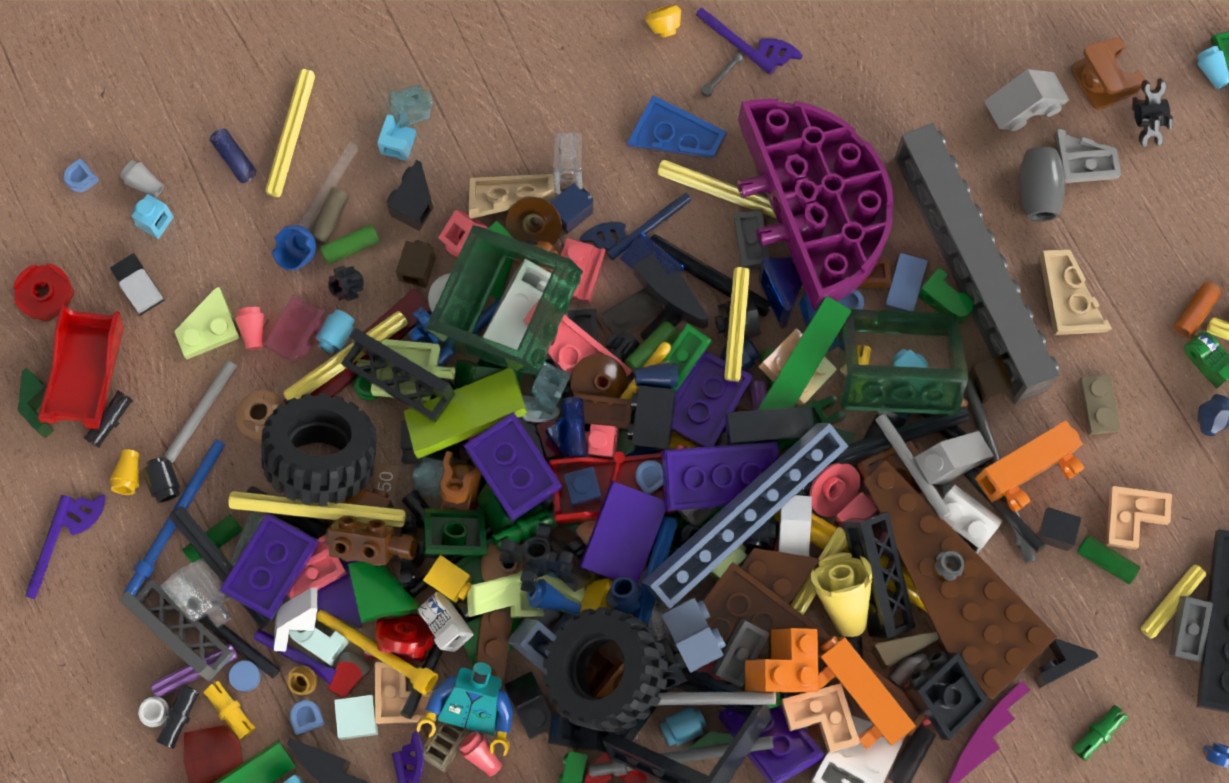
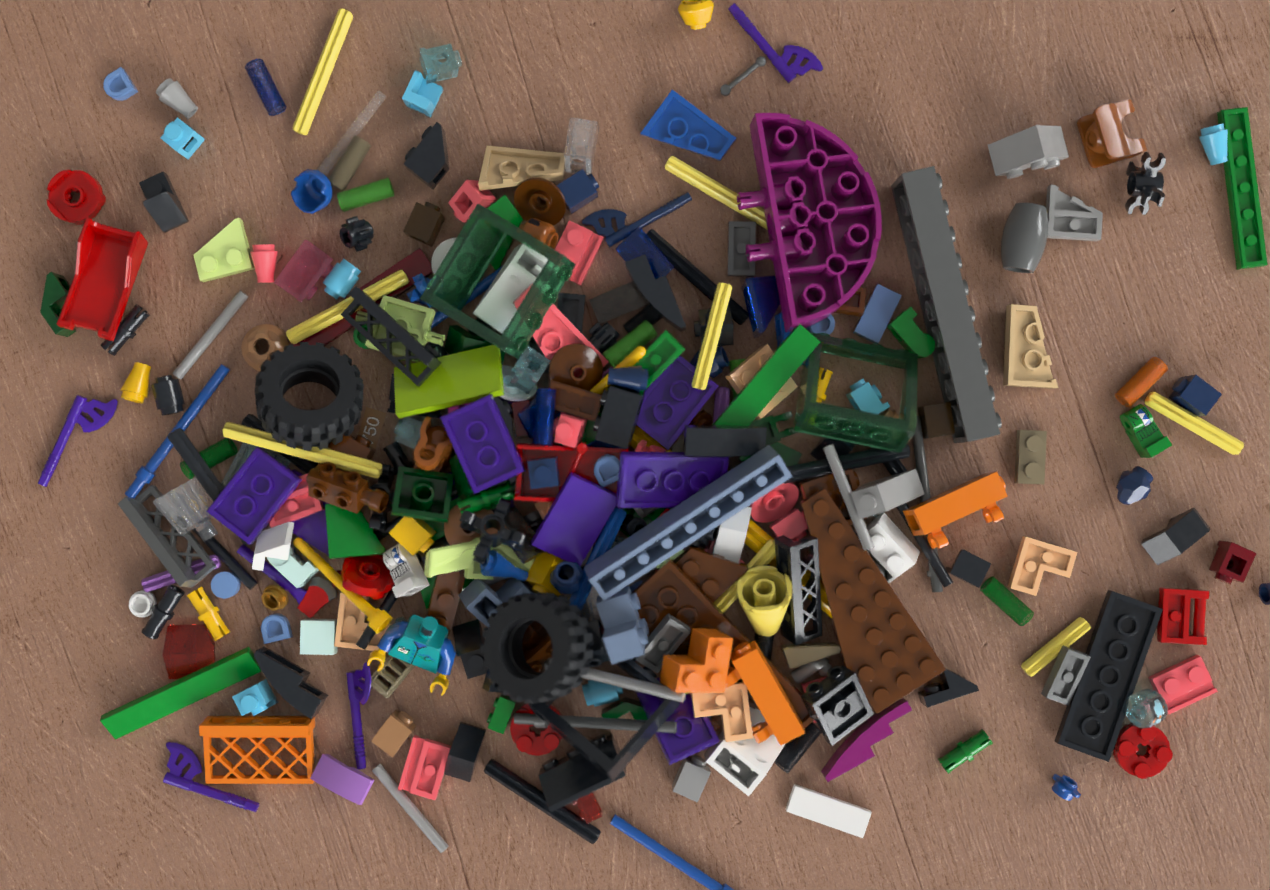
camera: 10 degrees right, 15 degrees up
(477, 751) = (419, 683): coral cone -> none
(955, 561) = (869, 595): dark grey plate -> none

